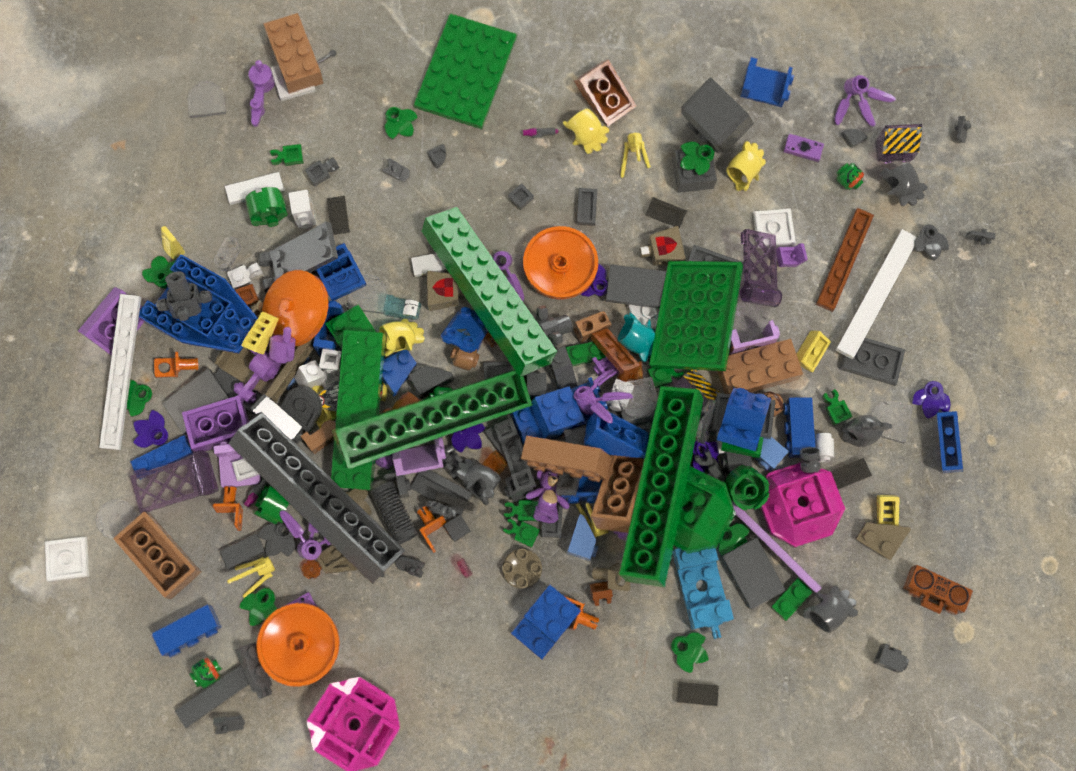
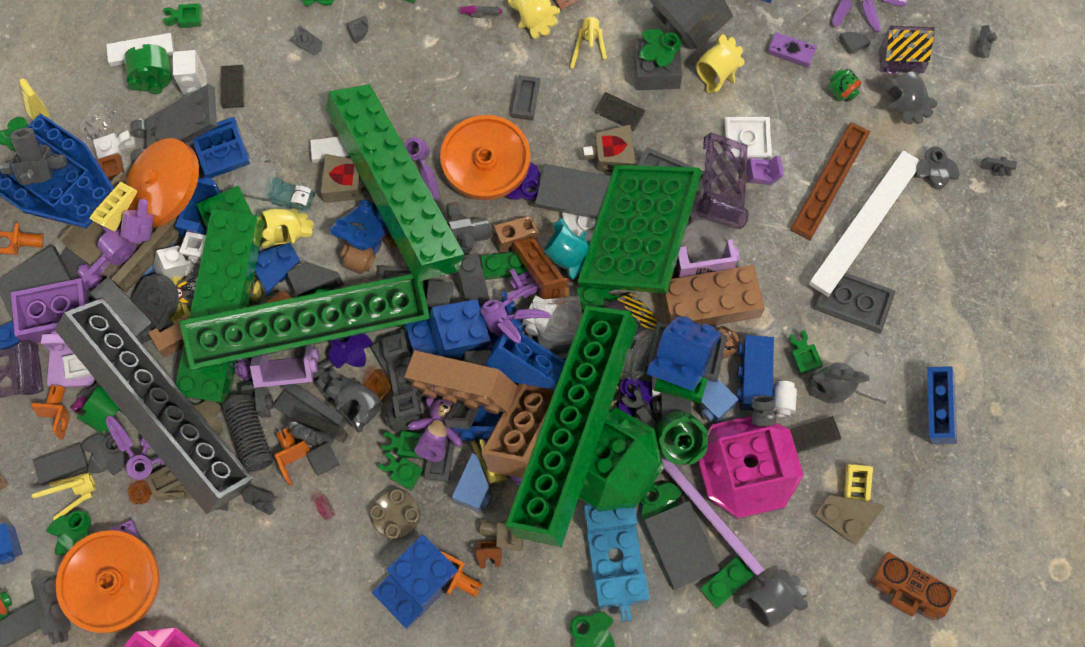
camera: 10 degrees right, 5 degrees down
(319, 172) = (217, 36): dark grey plate -> none
(521, 196) = (448, 80): dark grey plate -> none
(812, 350) = (781, 283): light yellow slope -> none
(932, 402) = (922, 355): dark purple plate -> none

